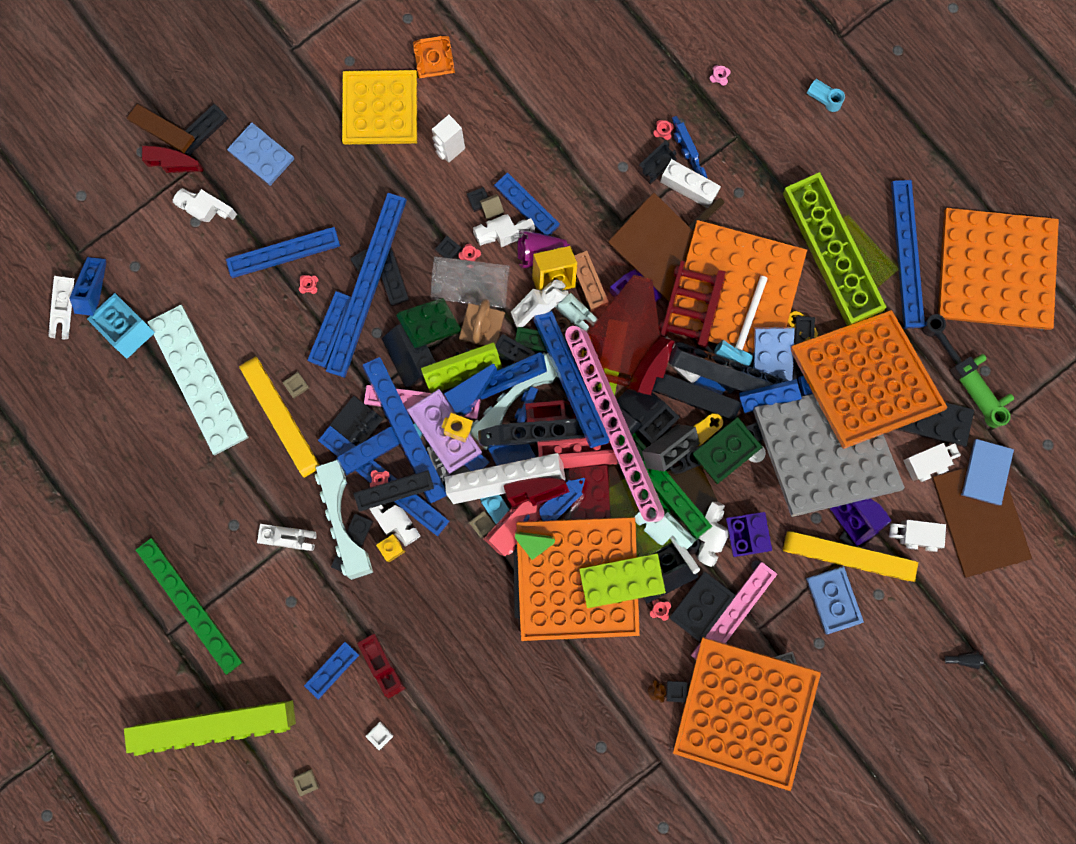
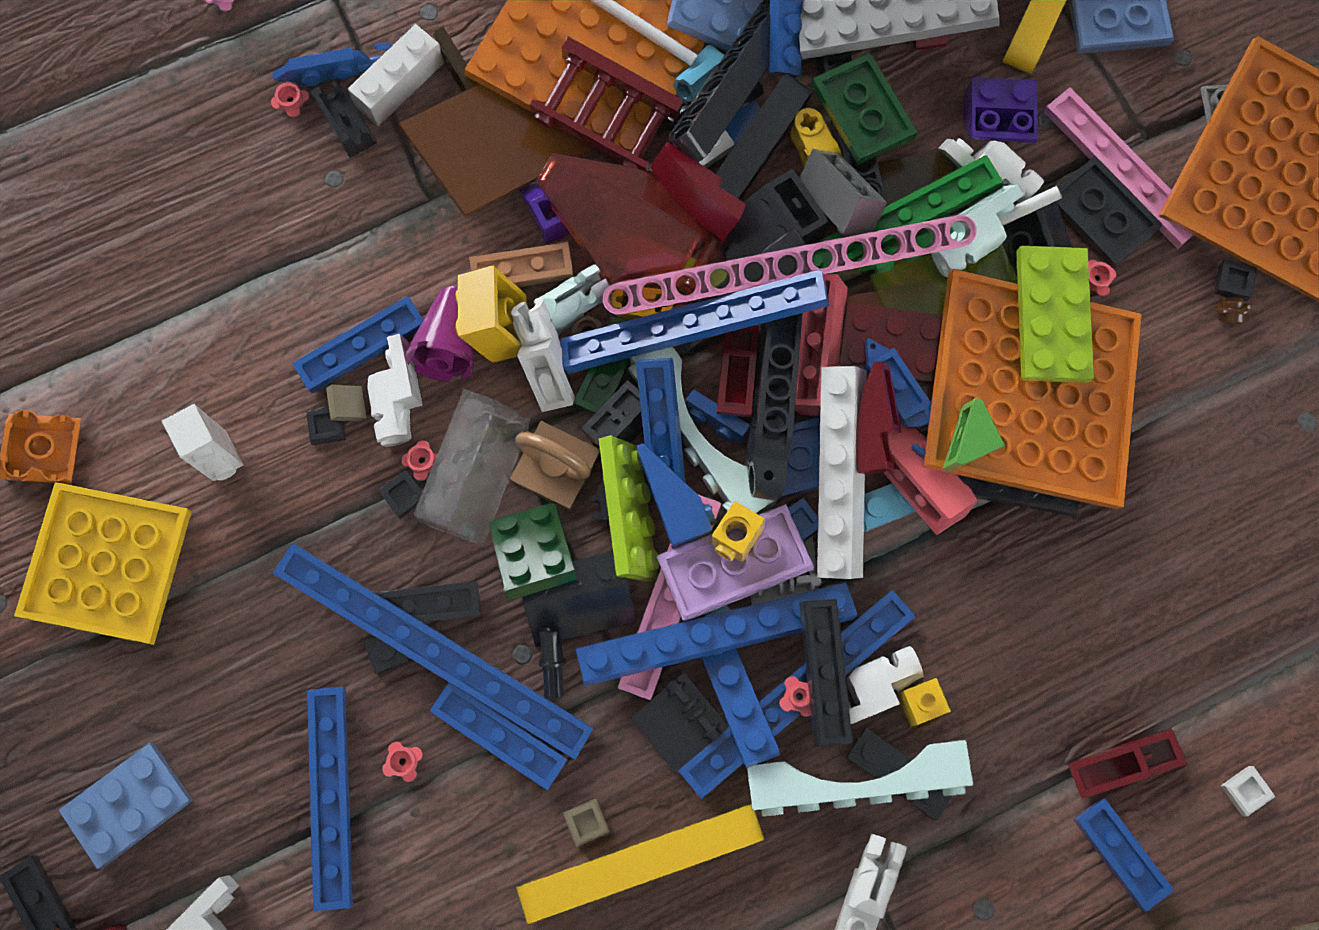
camera: 80 degrees left, 5 degrees down
(373, 347) = (552, 661): none -> black axle
(482, 524) = (904, 536): dark tan tile -> none

